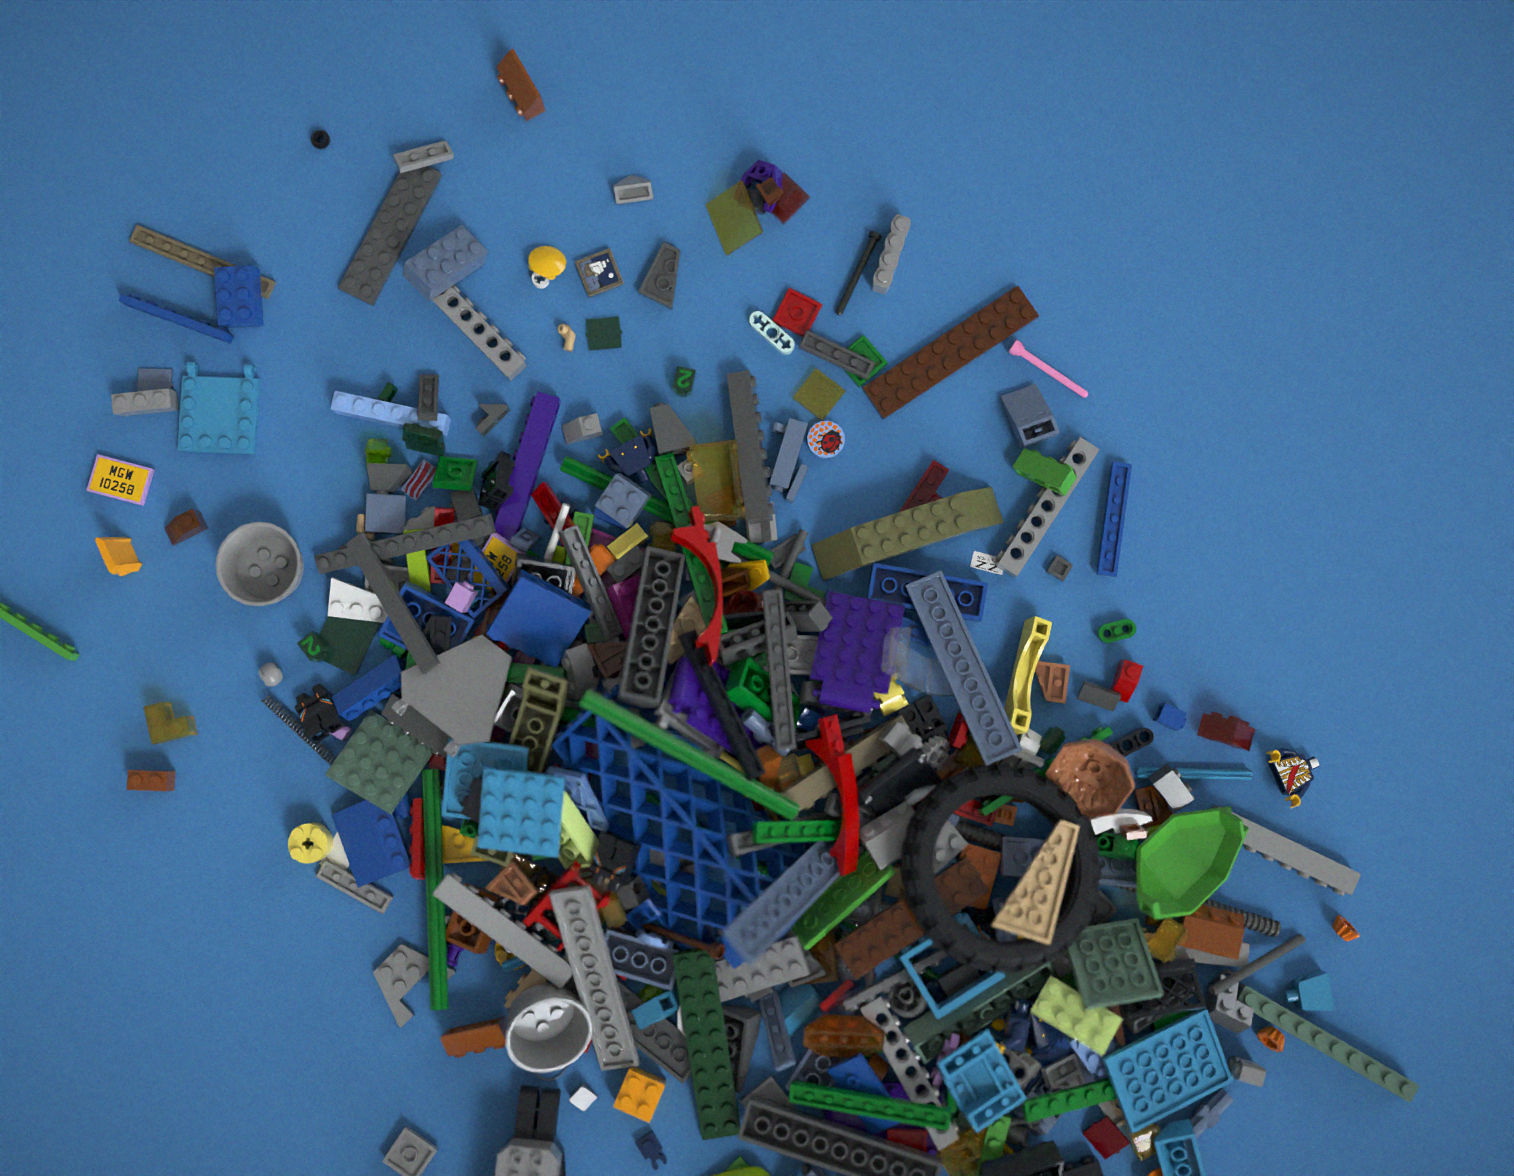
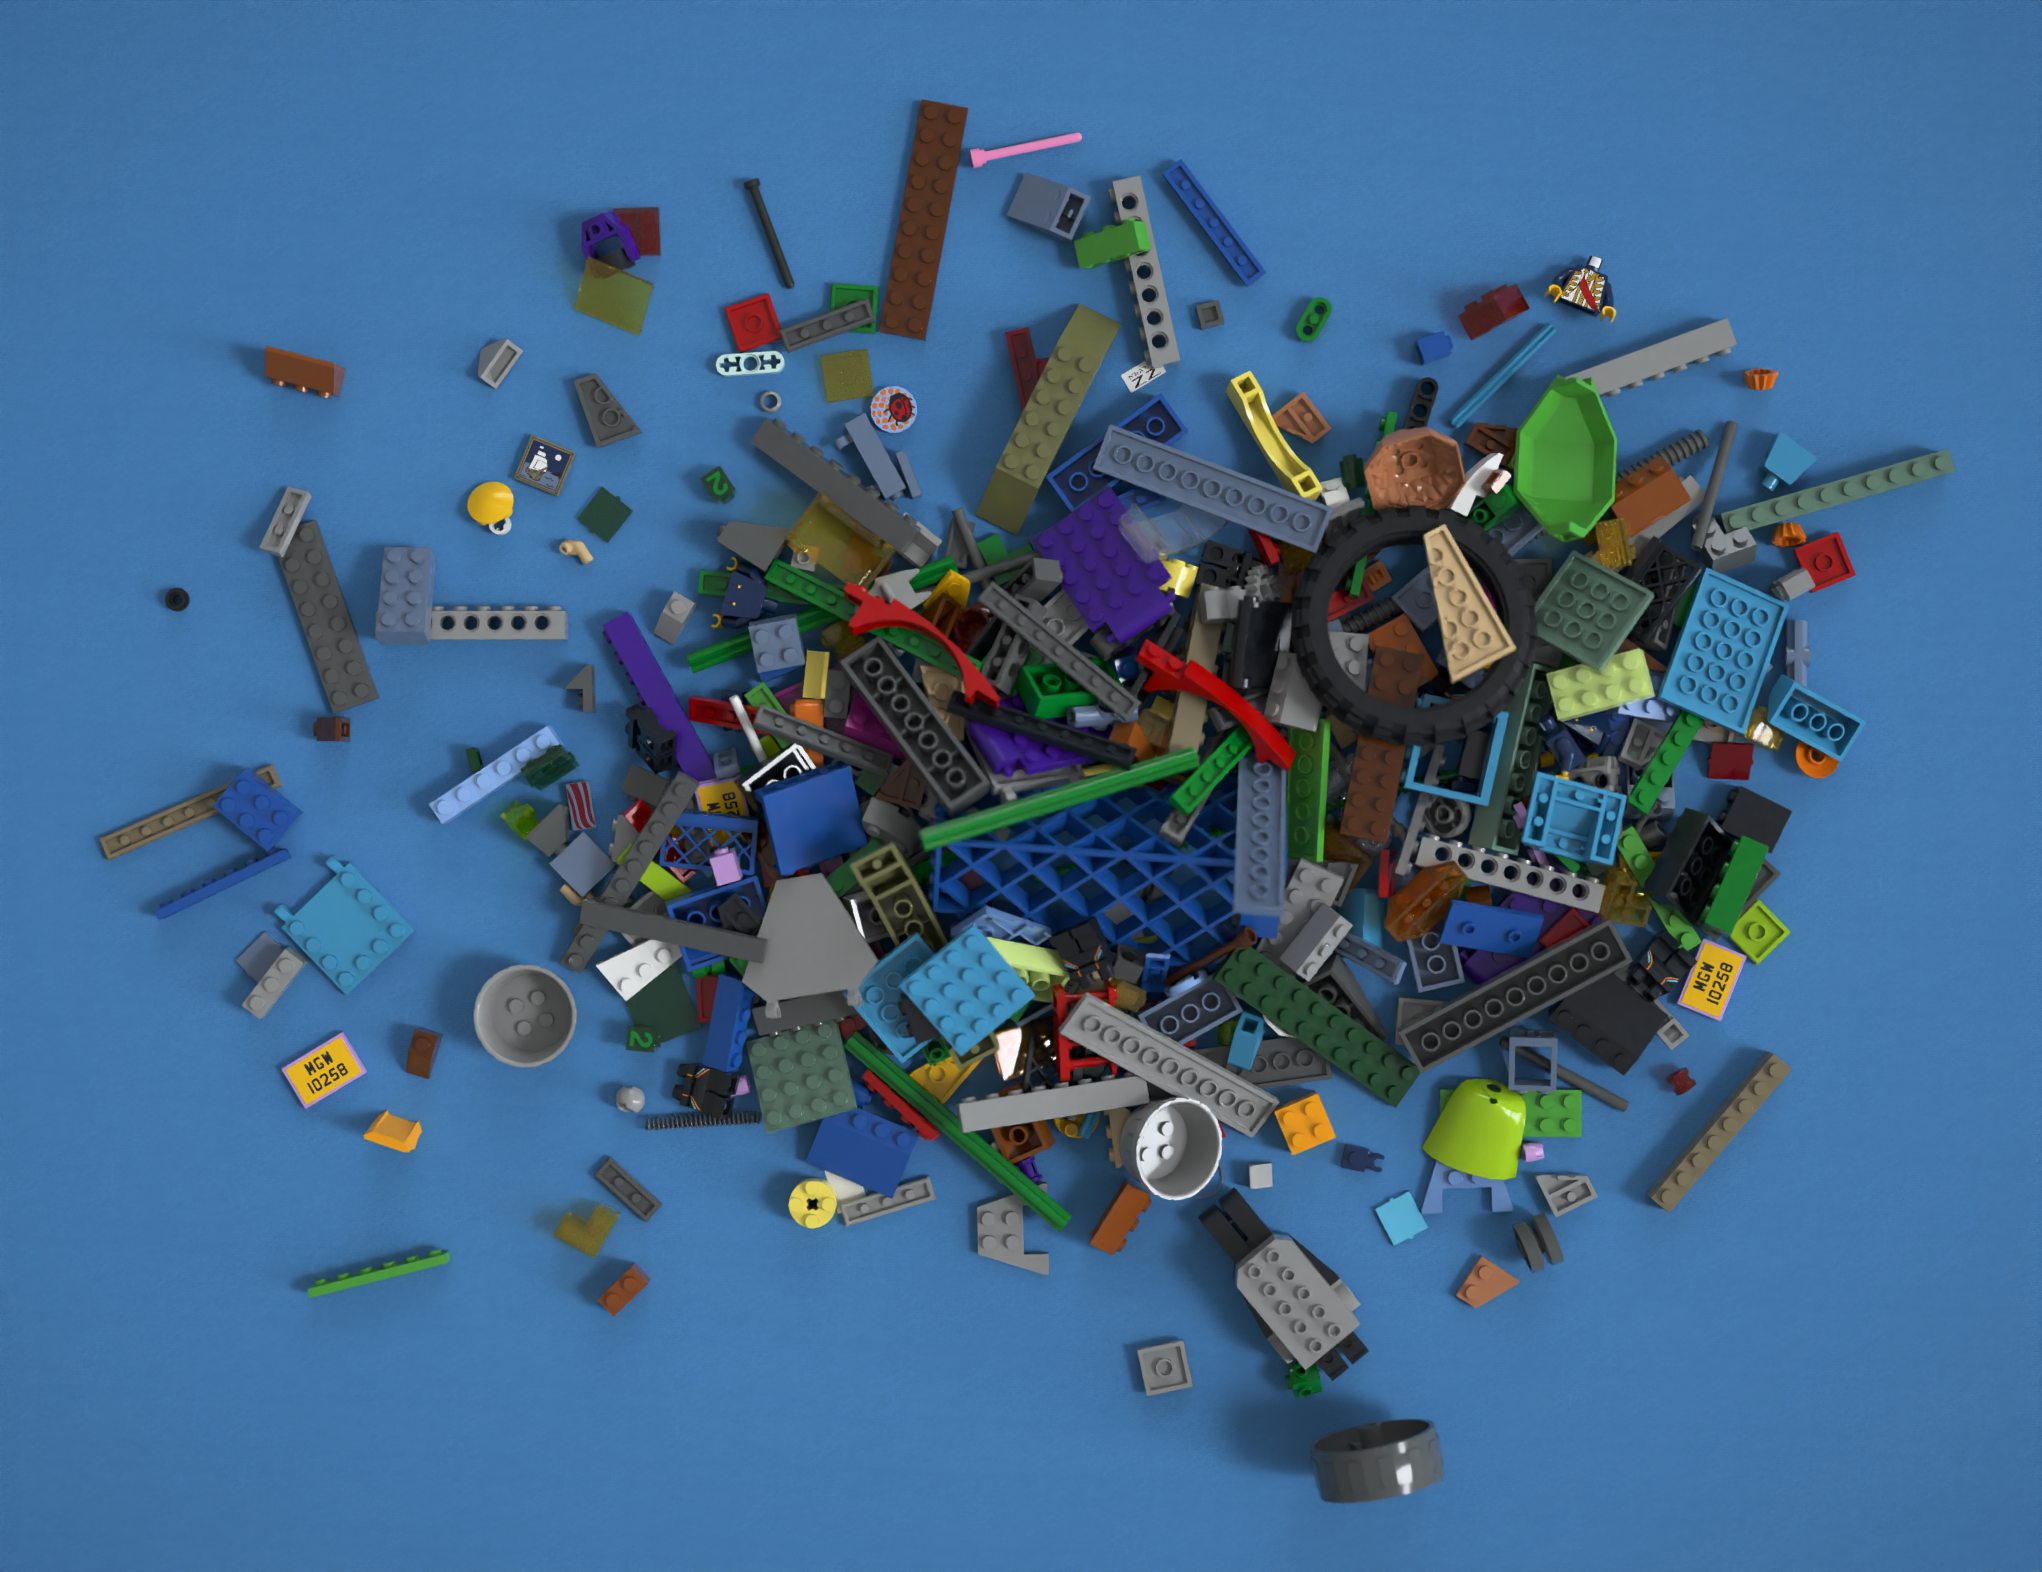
camera: 35 degrees left, 5 degrees up
(215, 725) = (628, 1189): none -> dark grey tile
(327, 296) = (332, 729): none -> slope
(376, 658) = (705, 997): none -> red tile
(428, 397) = (514, 727): dark grey tile -> none
(455, 473) = (606, 768): green tile -> none
(513, 884) = (1021, 1059): nougat wing -> none
(549, 865) = (1034, 1014): none -> sand blue piece
(755, 995) = (1316, 942): none -> light grey slope
(761, 359) = (769, 393): none -> light grey piece
(770, 191) = (622, 241): reddish brown panel -> none
(870, 1105) = (1502, 933): green plate -> none
(890, 255) = (780, 182): light grey brick -> none
(1098, 696) = (1354, 392): dark grey tile -> none
(1126, 679) = (1363, 355): red slope -> none
(1171, 787) = (1494, 408): brick -> none
(1280, 1075) = (1825, 561): none -> red plate

